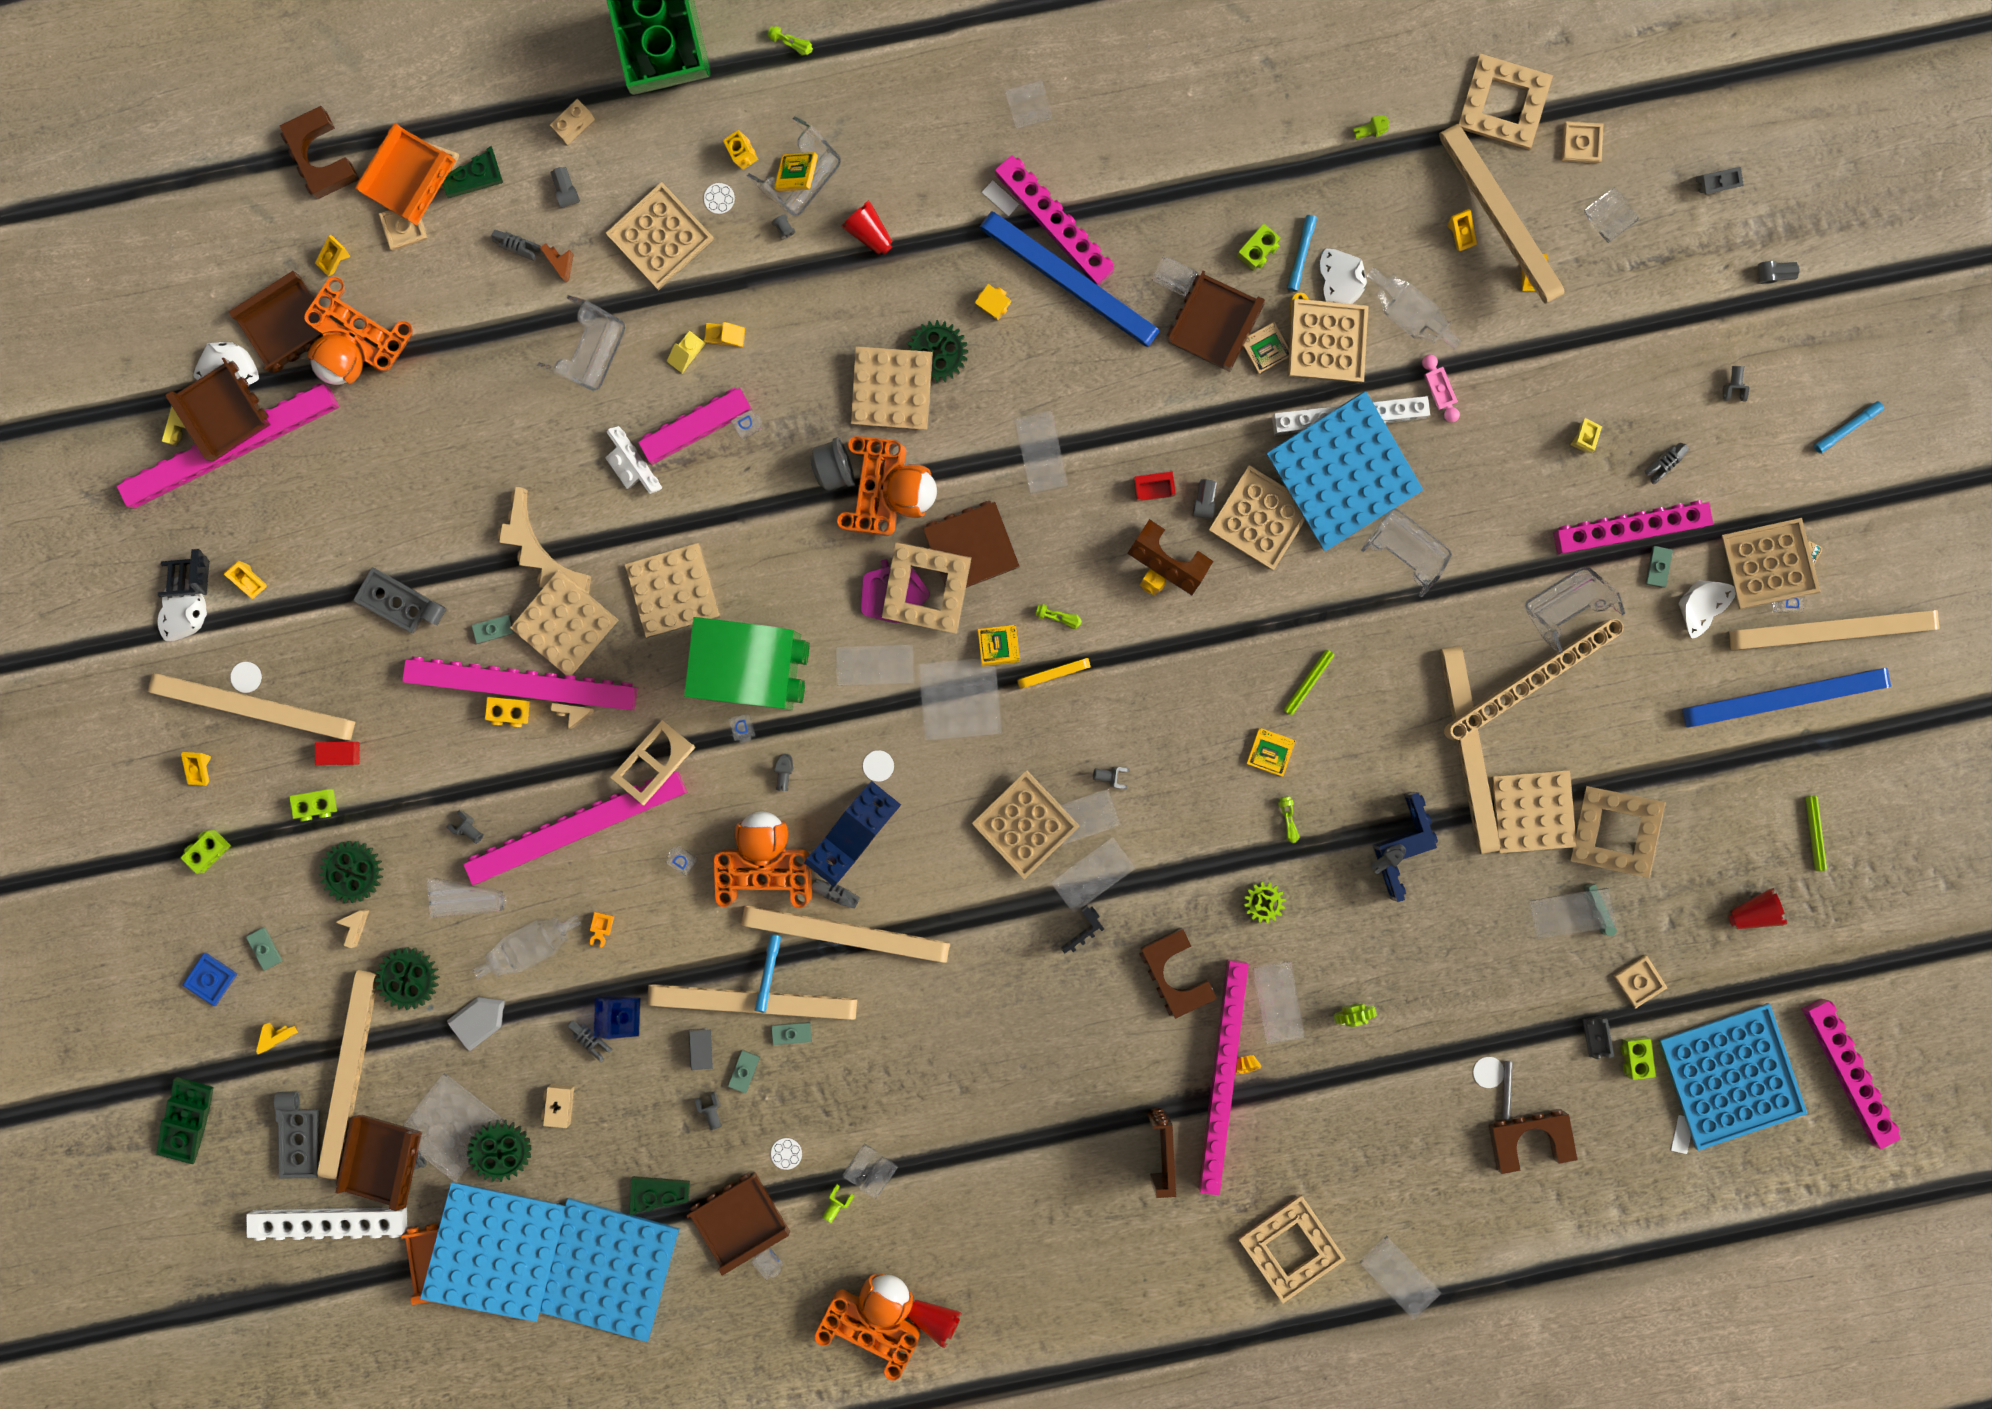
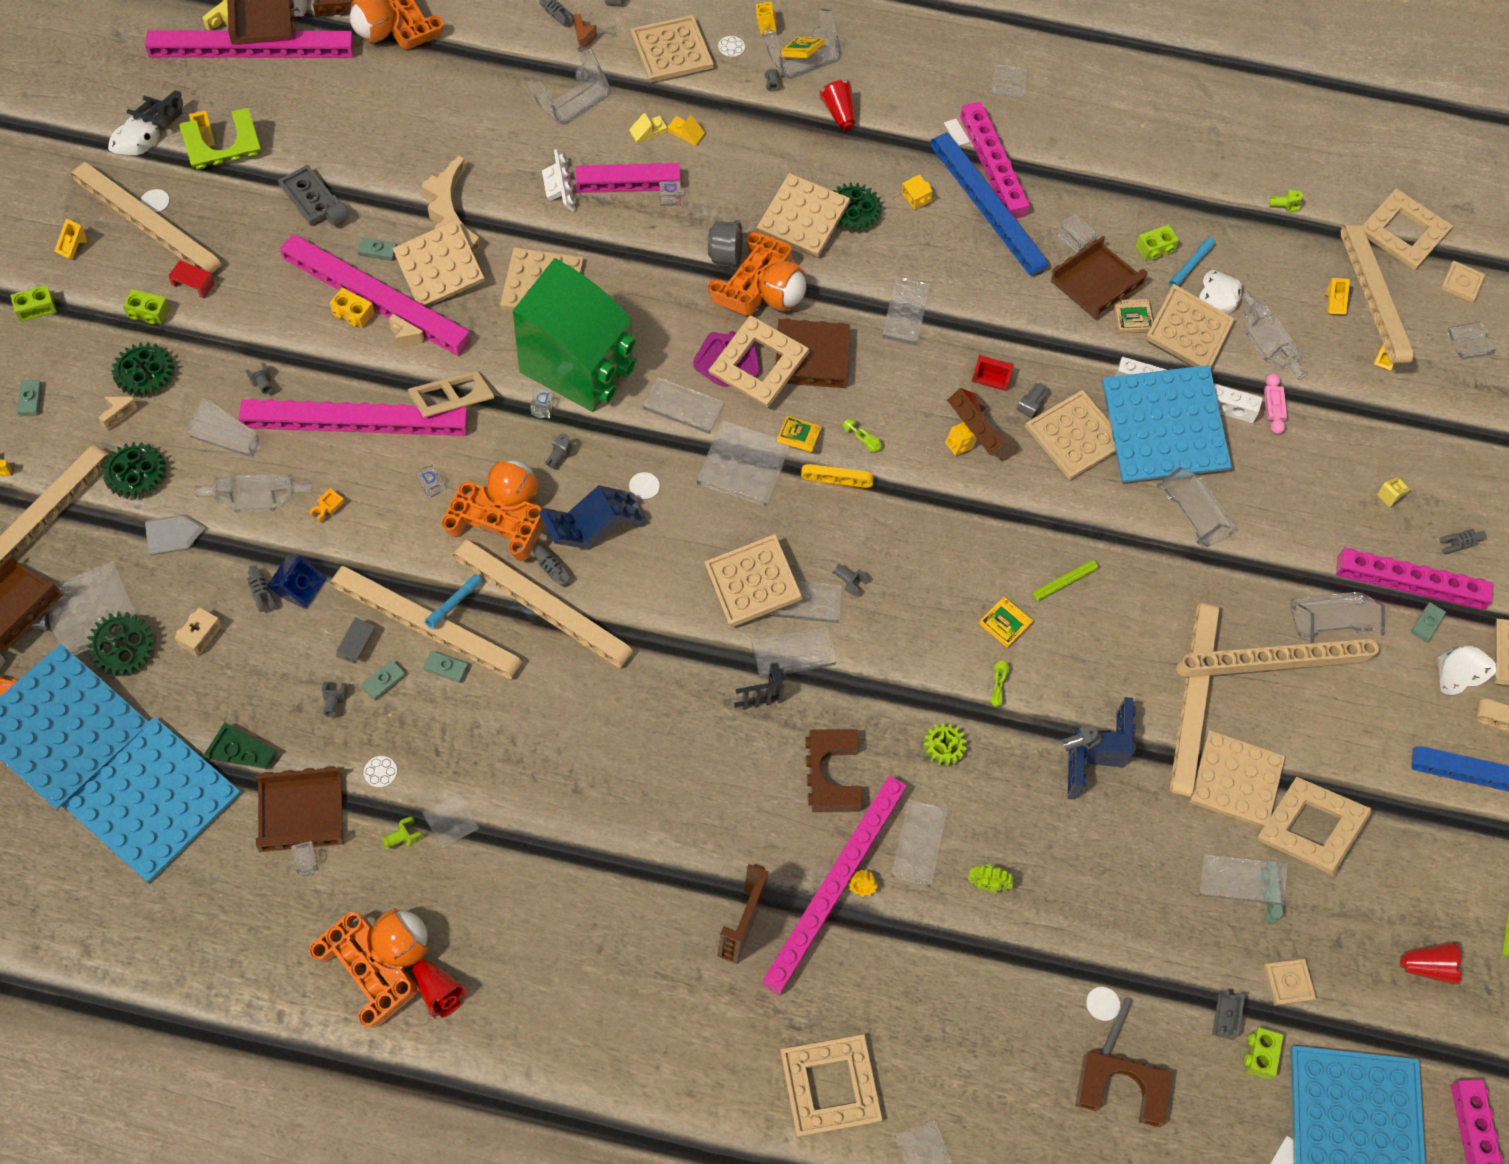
camera: 15 degrees right, 25 degrees down
(262, 607) = (201, 155): none -> lime arch

